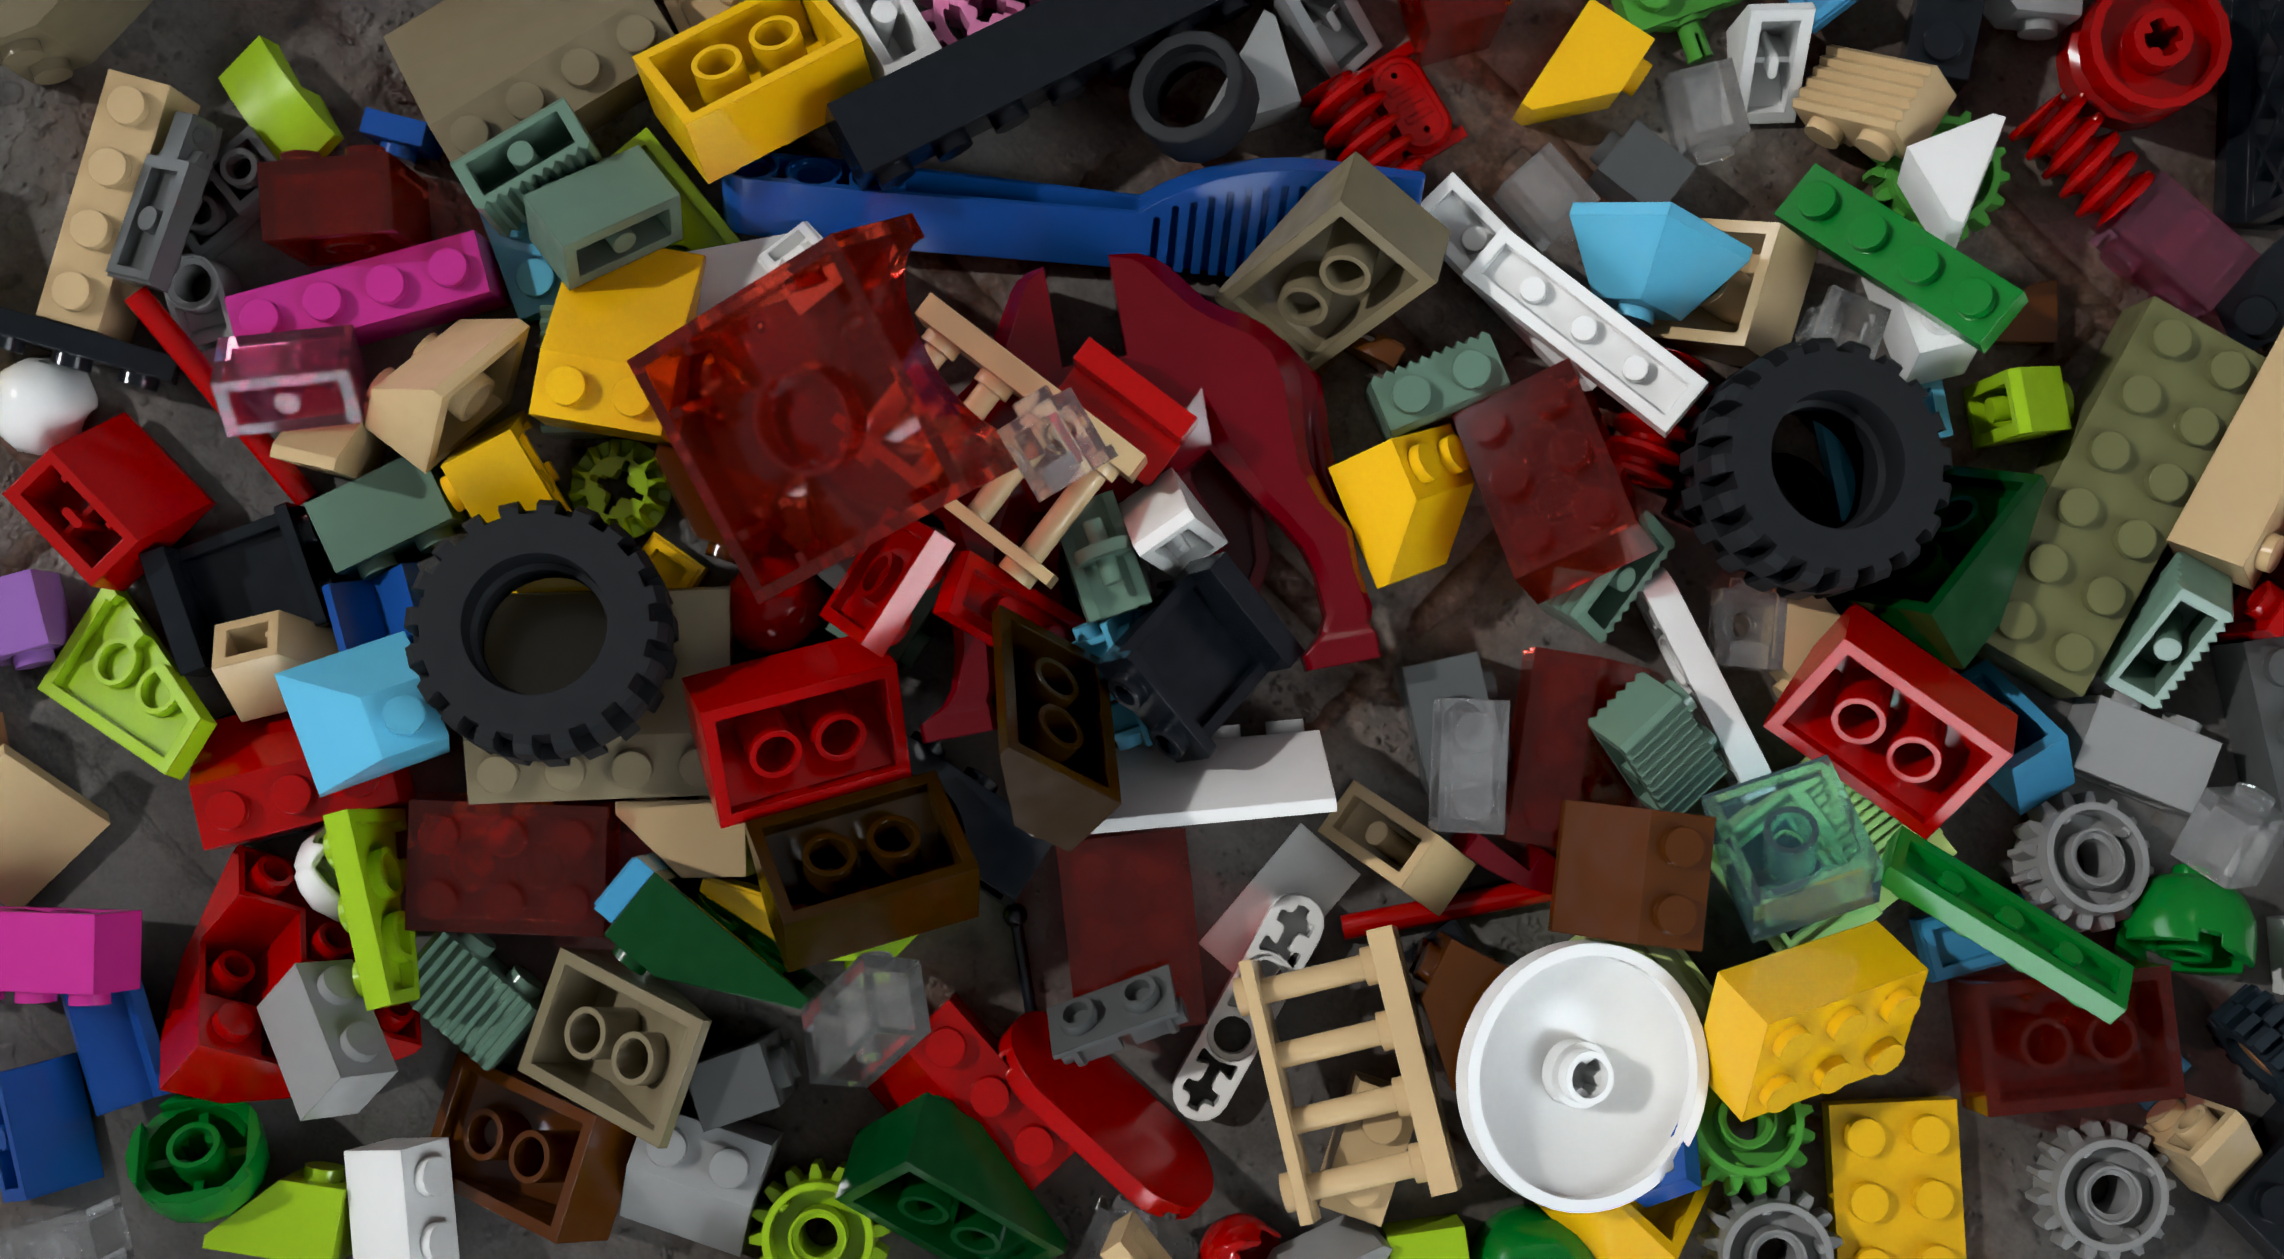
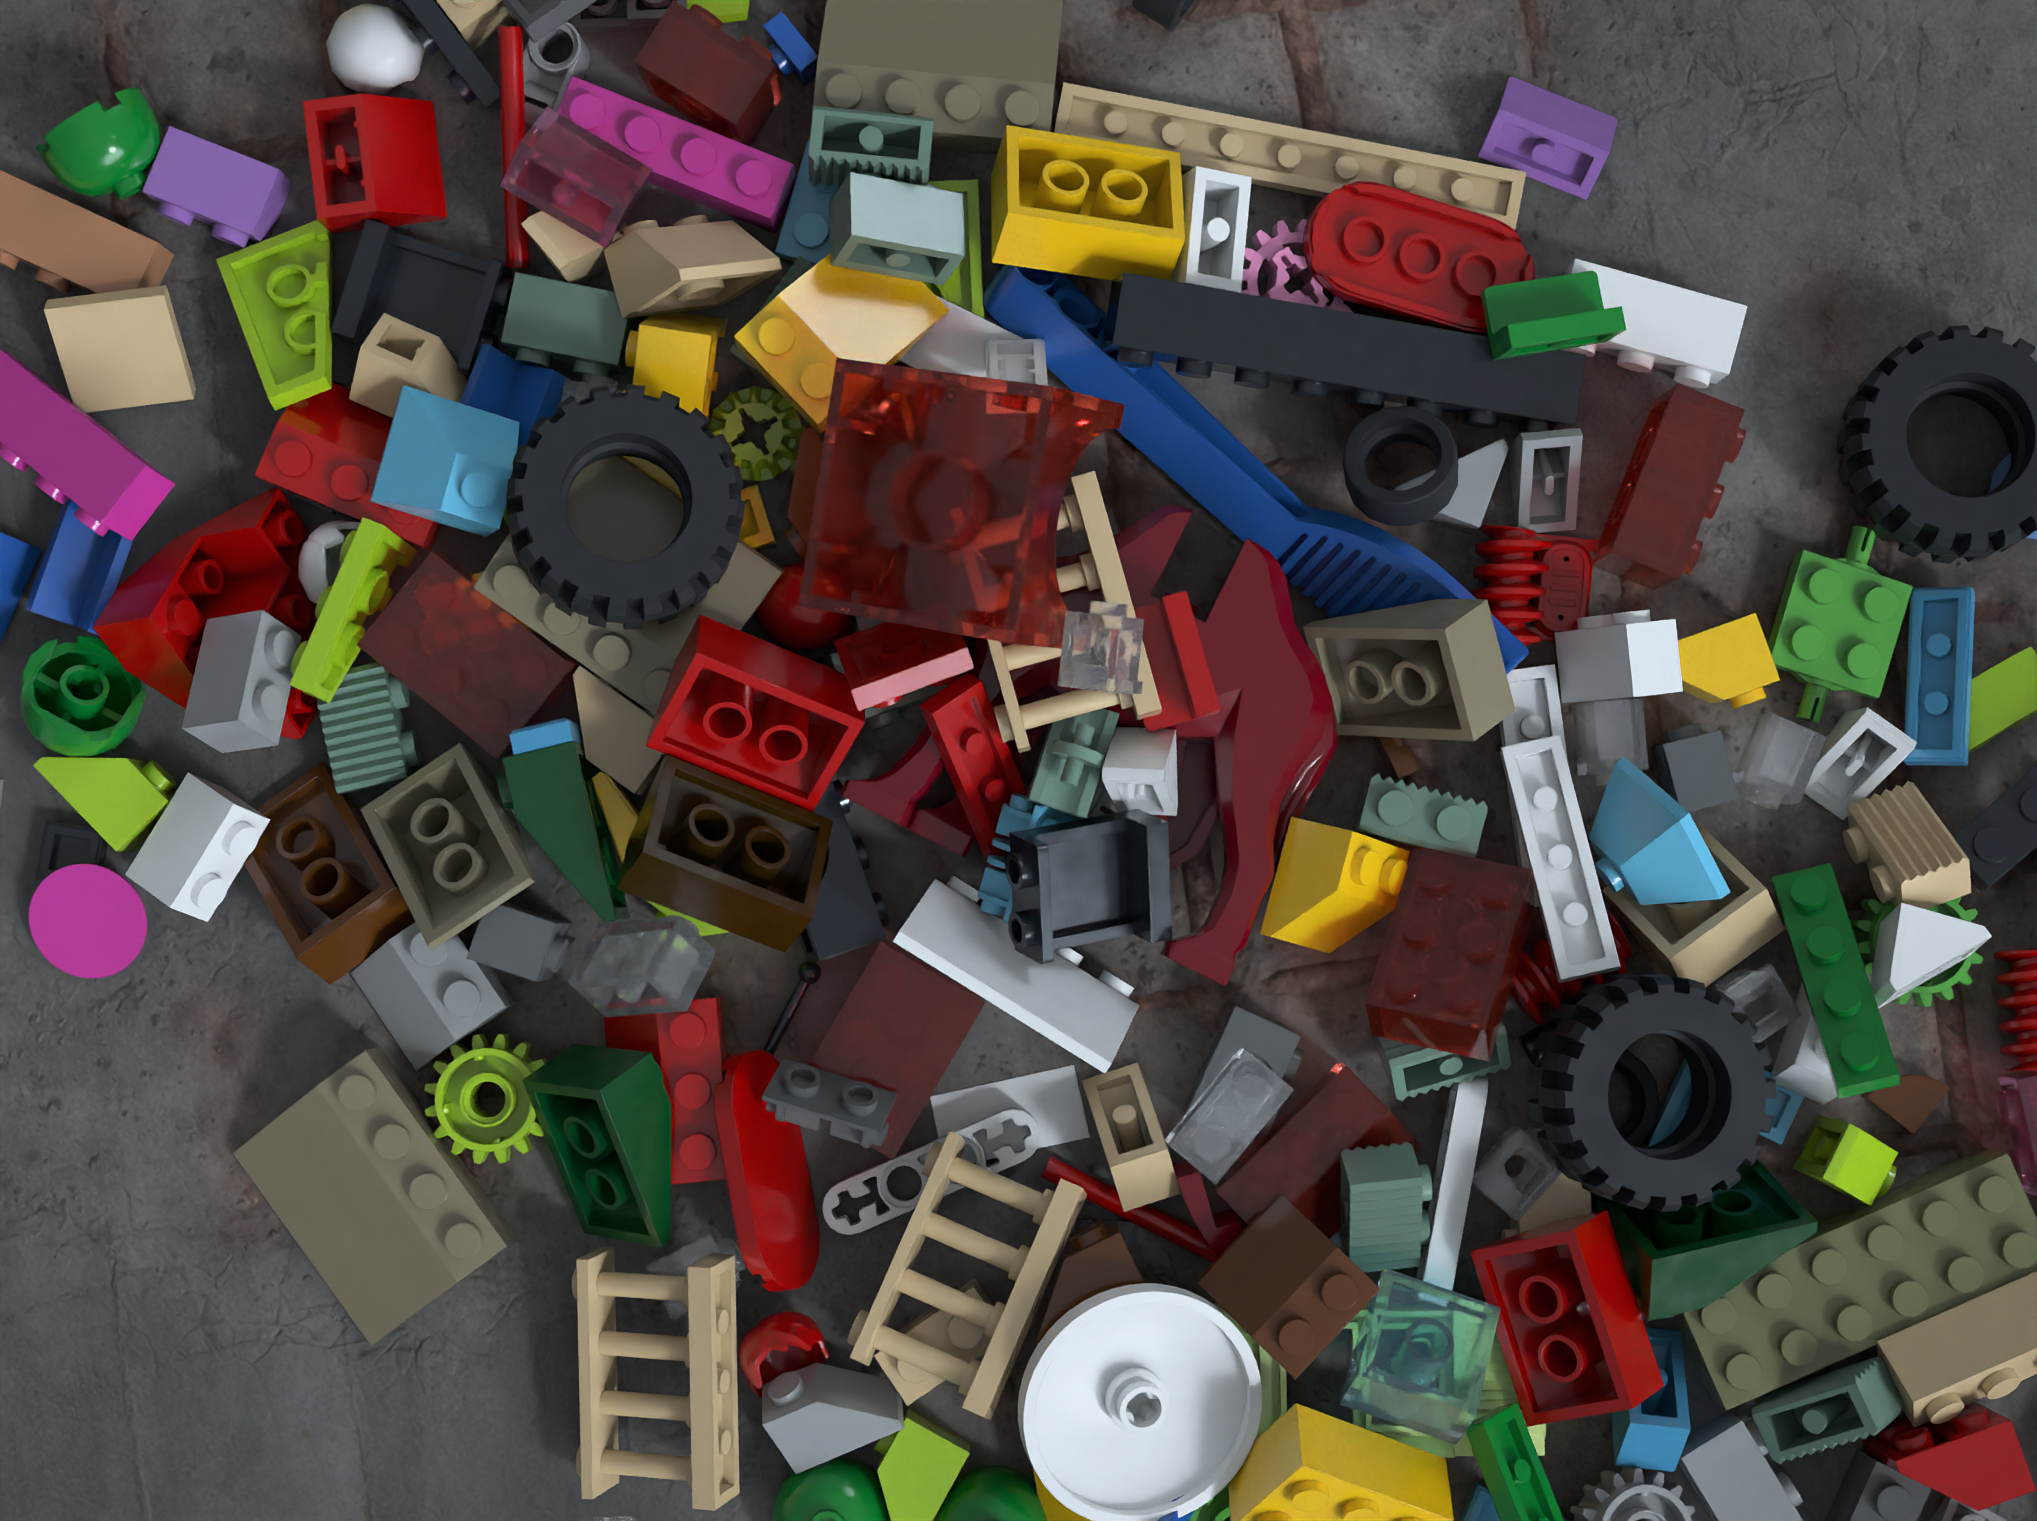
camera: 30 degrees right, 0 degrees up
(1053, 732) = (942, 859): dark brown slope -> none
(1506, 123) = (1618, 657): none -> white brick

